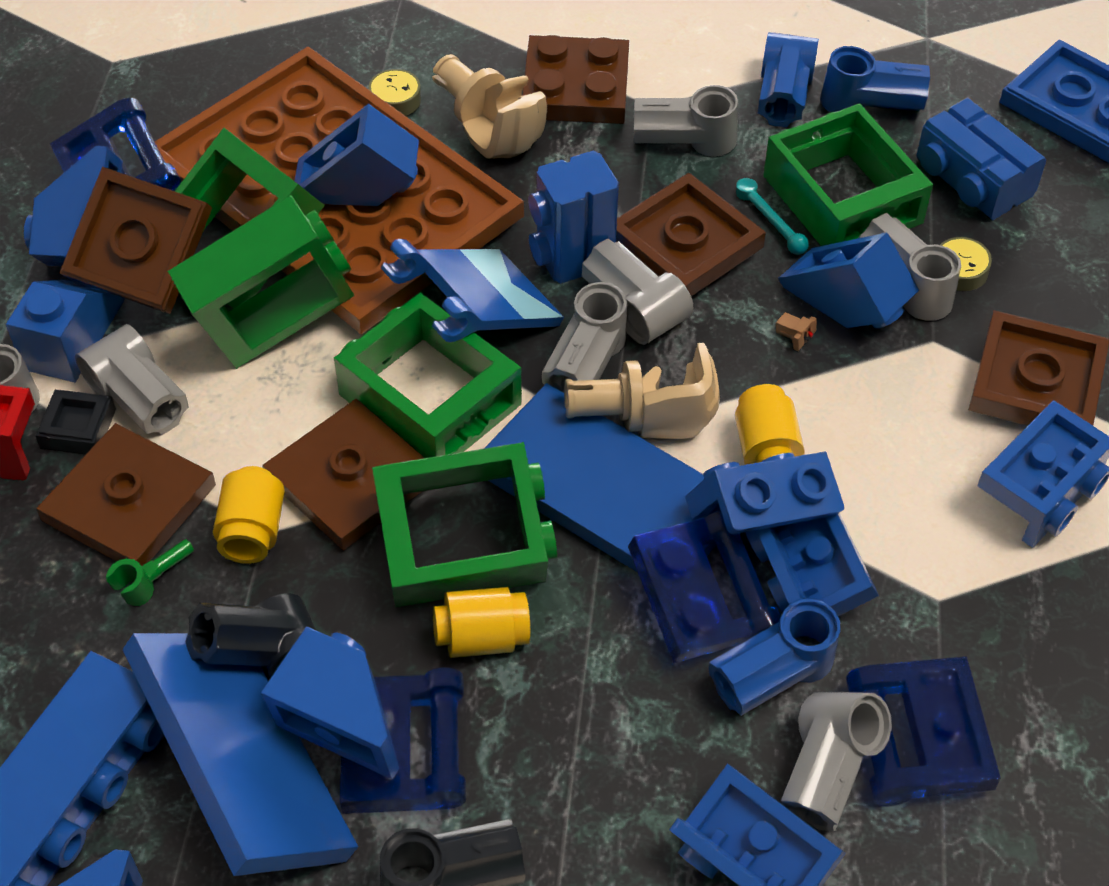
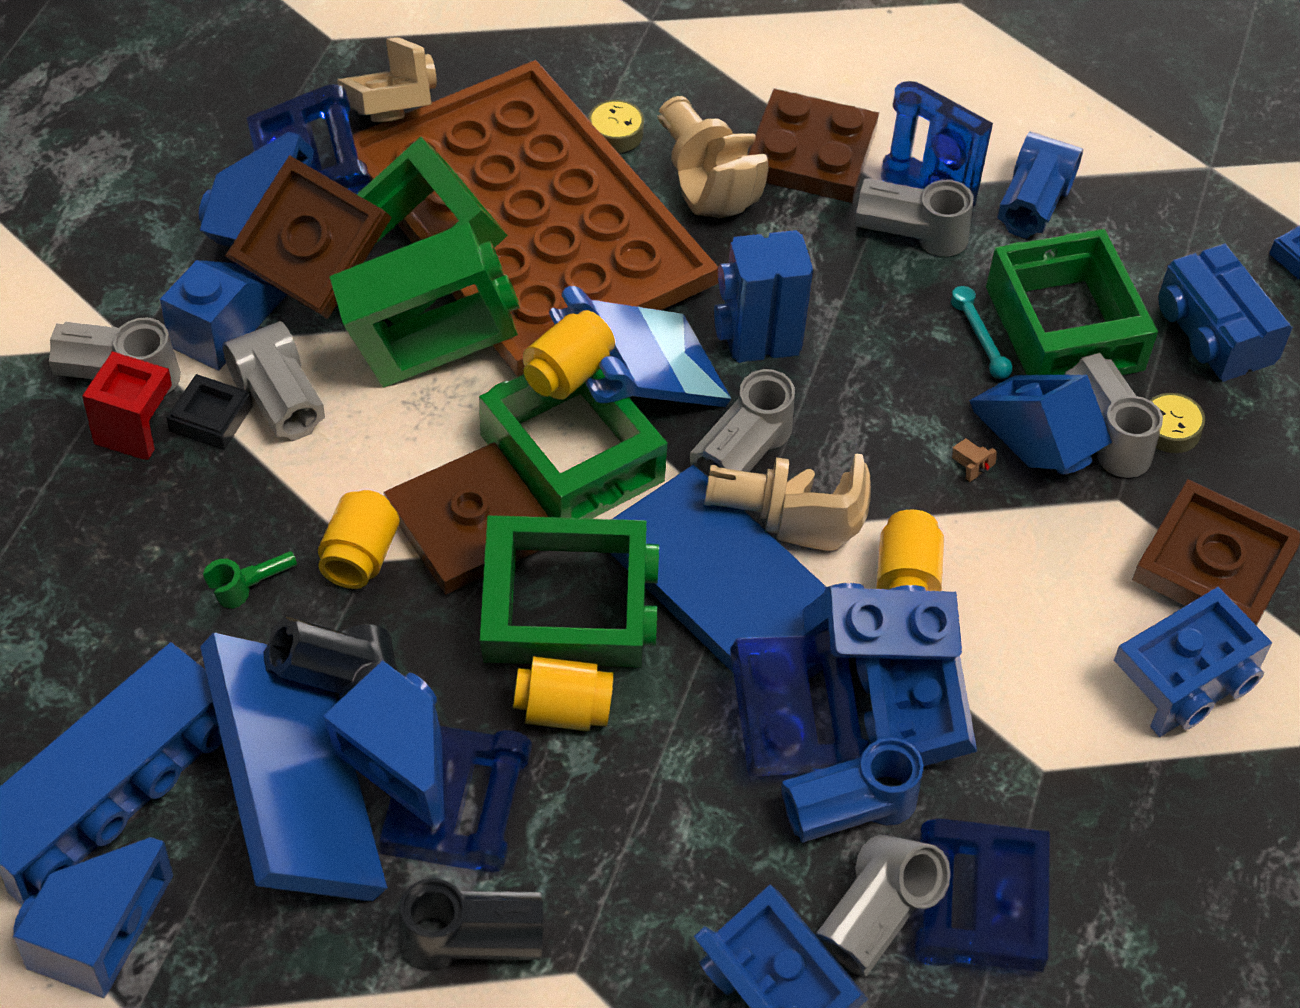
camera: 10 degrees right, 0 degrees up
(126, 496) = (243, 496): reddish brown plate -> none
(194, 87) = (403, 87): none -> tan bracket
(360, 161) = (556, 196): blue slope -> none
(410, 302) = (567, 354): none -> yellow brick
(652, 301) = (823, 398): light grey piece -> none
(689, 233) = (883, 337): reddish brown plate -> none
(708, 57) = (954, 141): none -> clear blue plate
(858, 78) = (1116, 203): blue piece -> none

